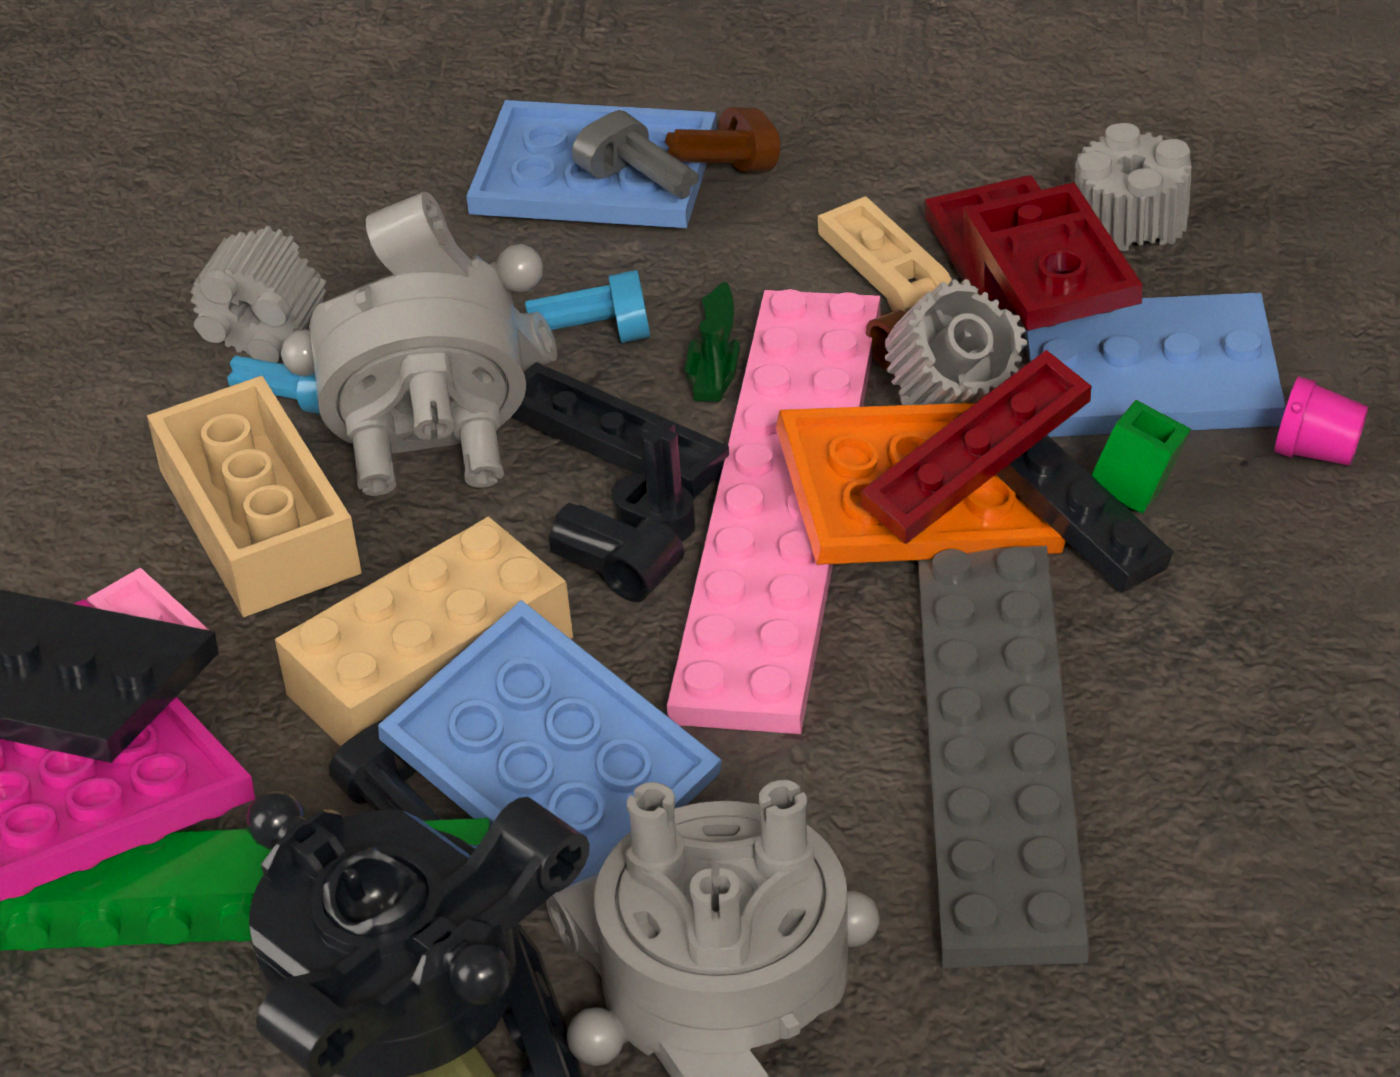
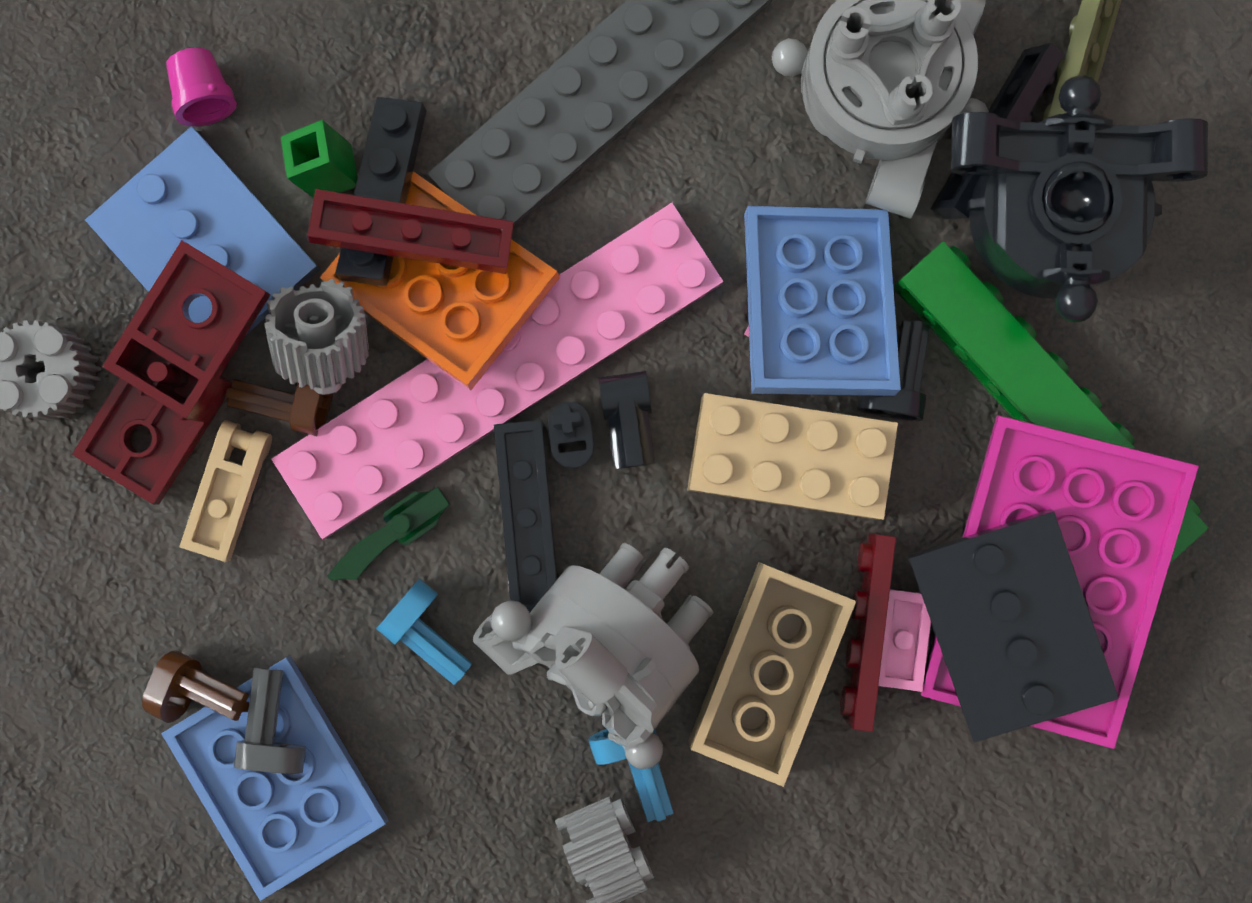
camera: 135 degrees left, 45 degrees up
(242, 644) = (865, 651): none -> dark red plate

